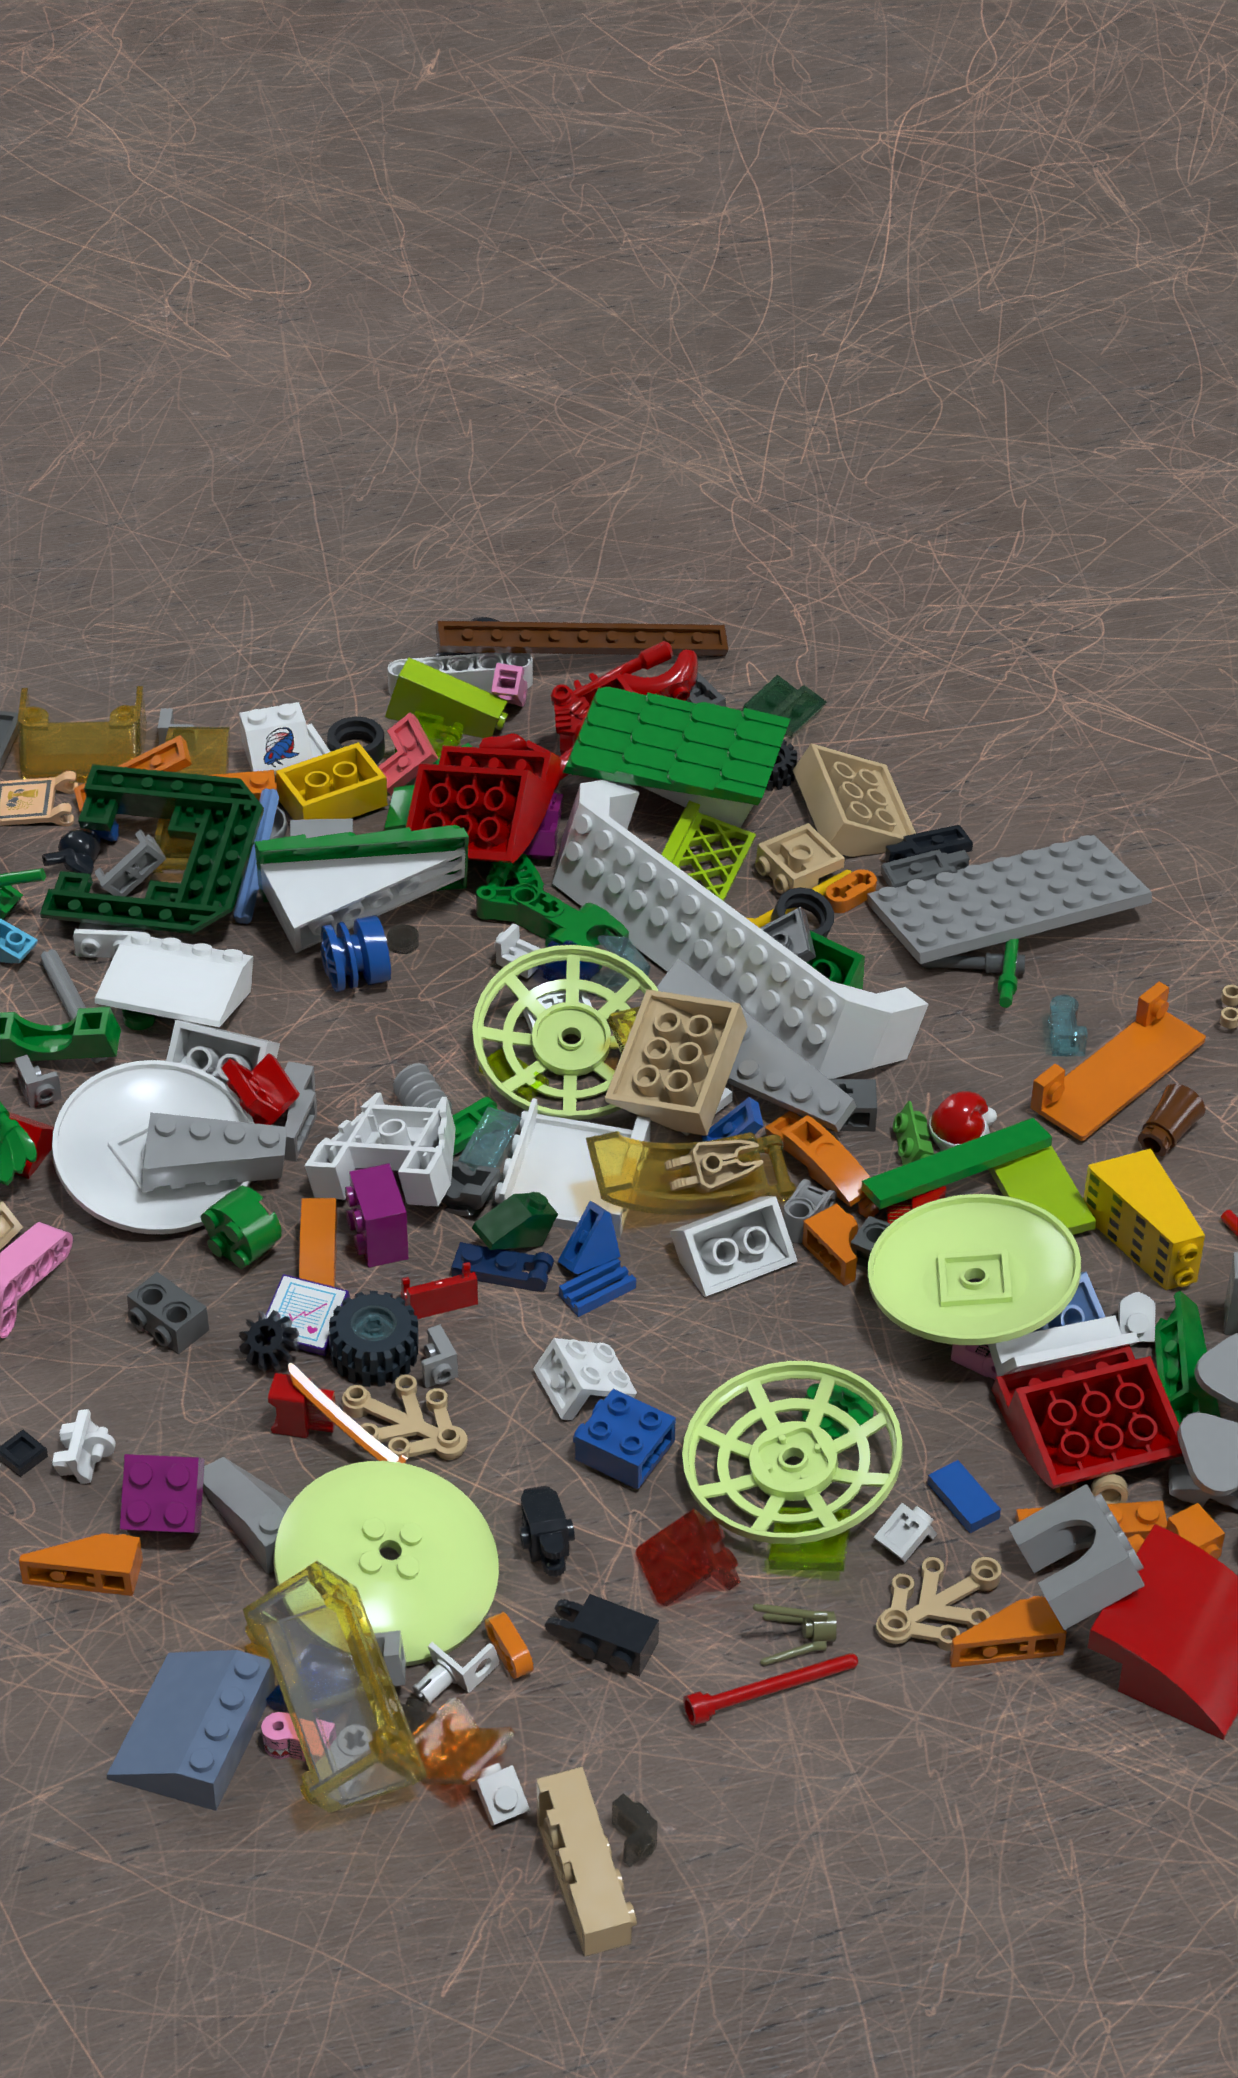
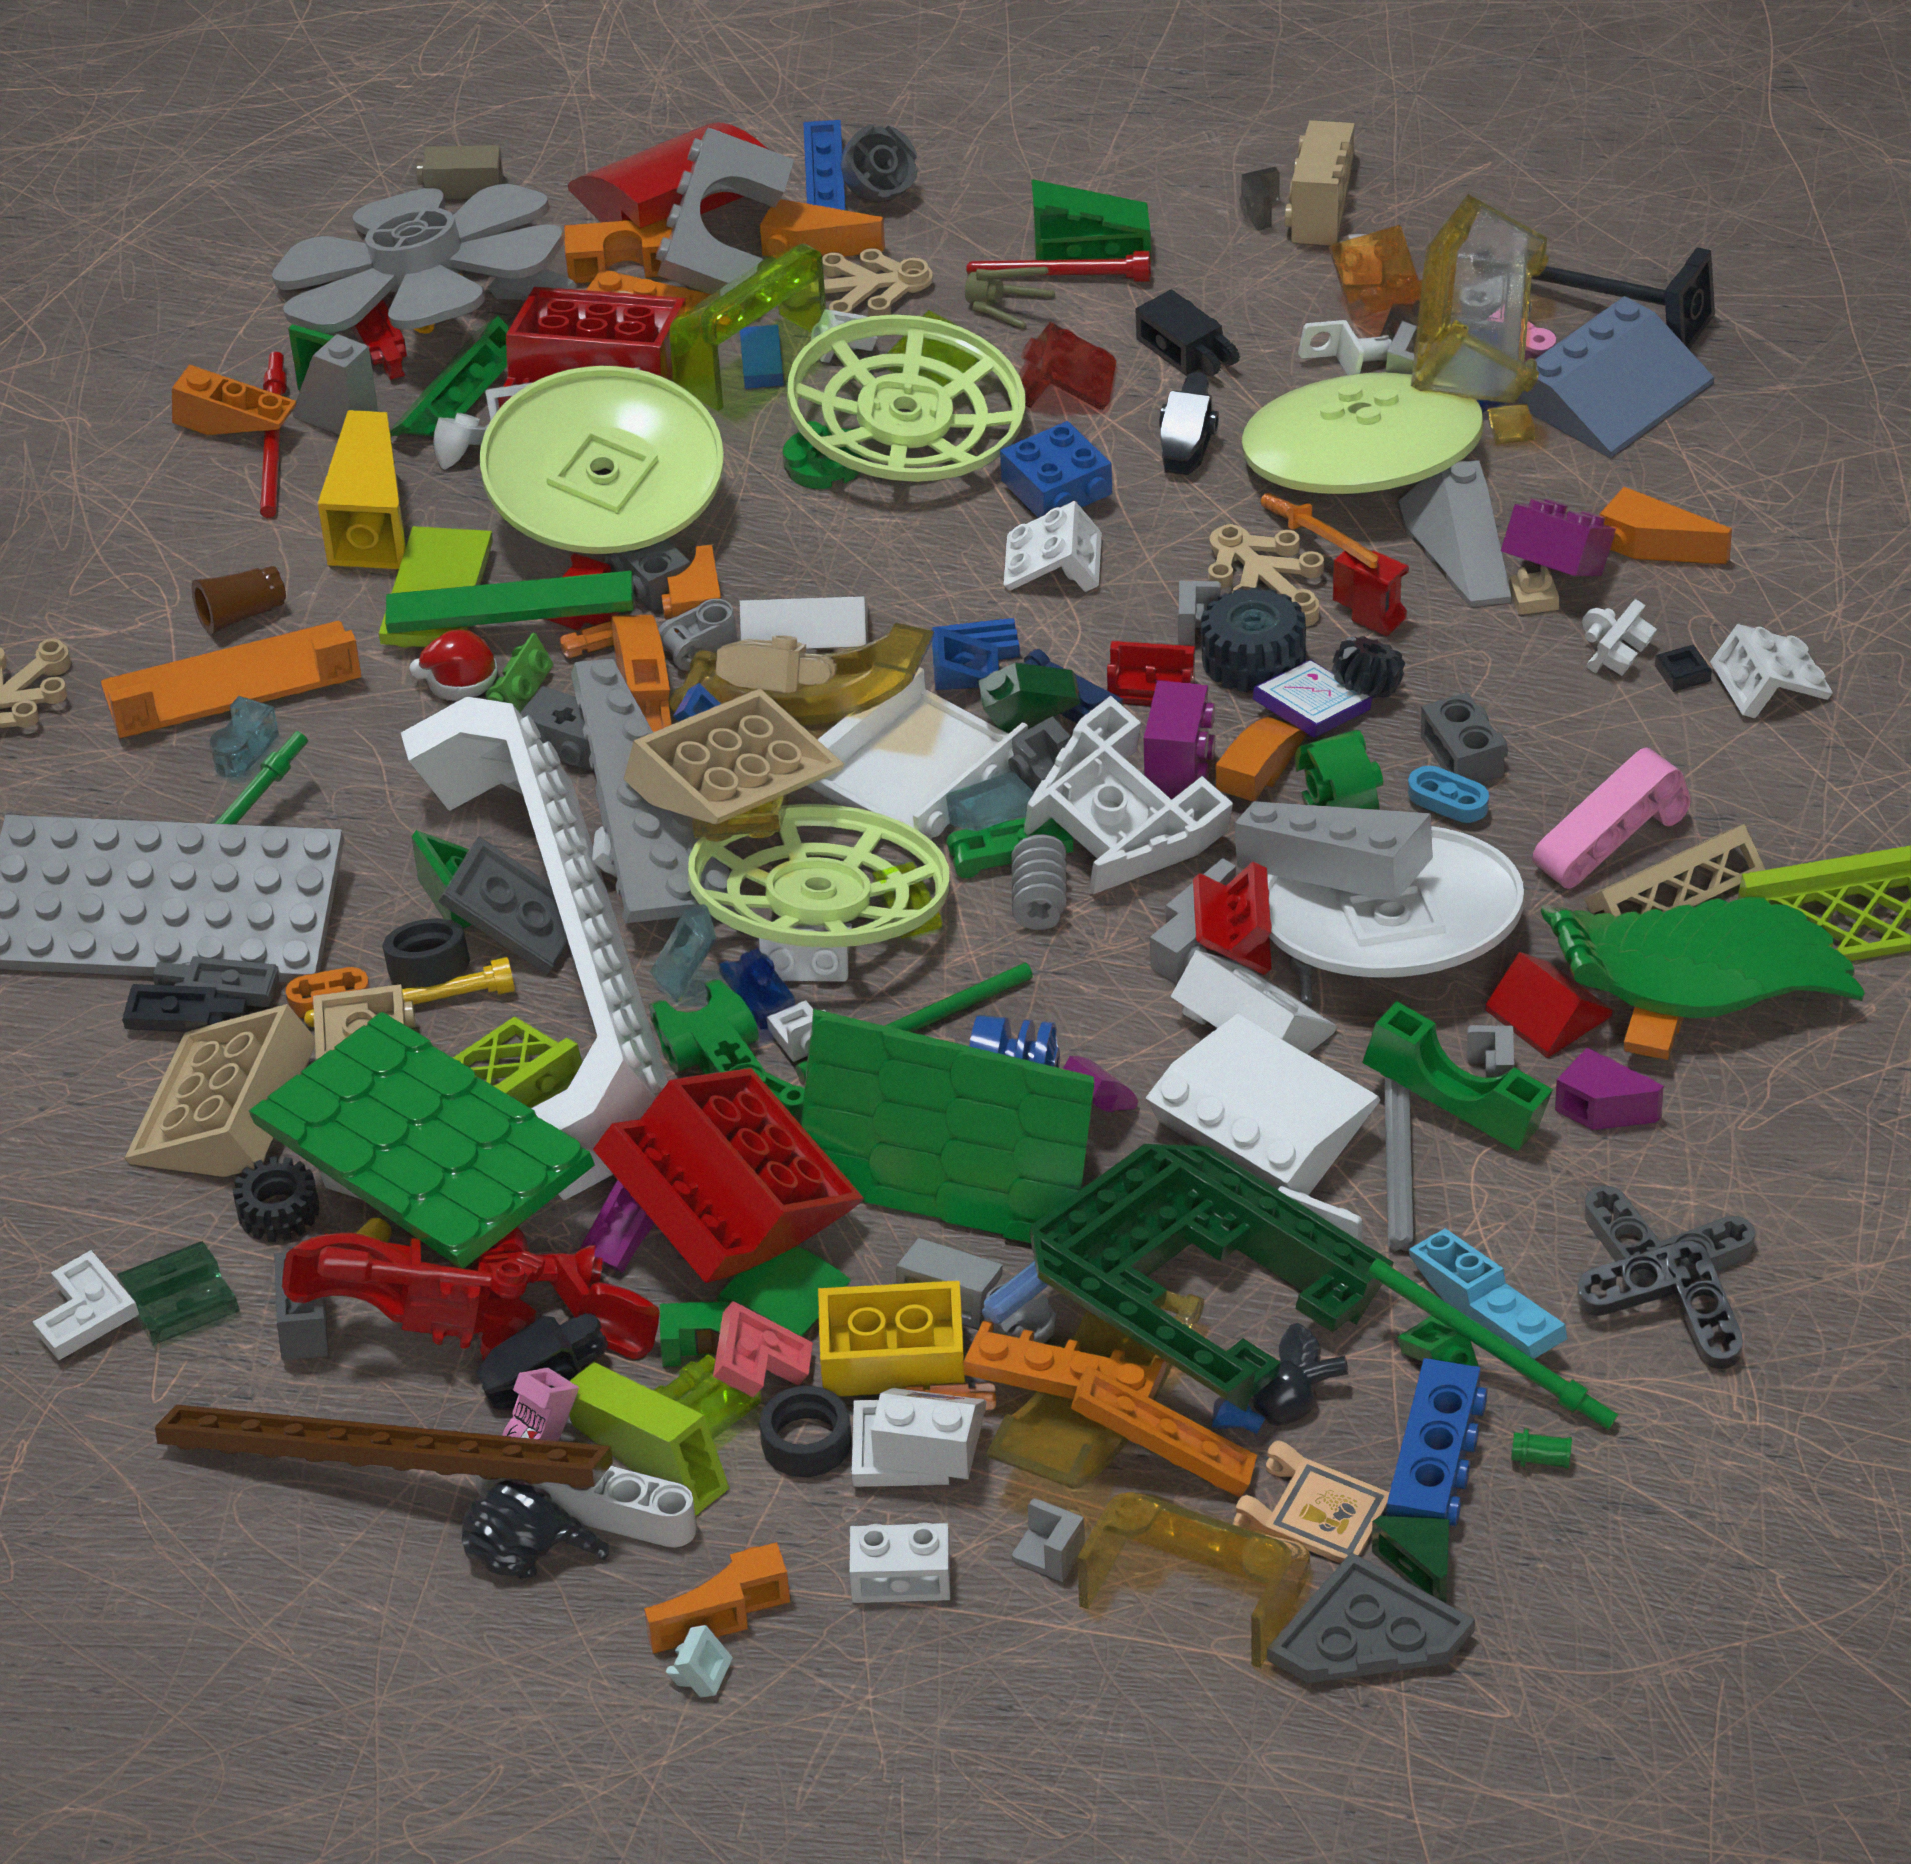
camera: 150 degrees left, 0 degrees up
(132, 867) = (1235, 1301): light grey hinge -> none
(157, 1810) = (1686, 299): none -> black tile
(174, 1267) = (1448, 794): none -> dark azure plate
(255, 691) = (899, 1563): none -> white brick
(288, 963) = (1108, 1091): none -> magenta slope
(337, 622) = (700, 1662): none -> light aqua tile
(342, 648) = (748, 1584): none -> orange slope
(483, 957) = (953, 1003): none -> green bar
(509, 1645) = (1282, 355): orange beam -> none
(533, 720) = (541, 1346): none -> black hinge
(767, 1717) = (1086, 224): none -> green wedge
(824, 678) = (93, 1306): none -> white plate
(973, 1471) = (784, 280): none -> clear neon green windscreen
(1006, 1711) = (879, 163): none -> dark grey cylinder
(1063, 1717) = (823, 163): none -> blue plate

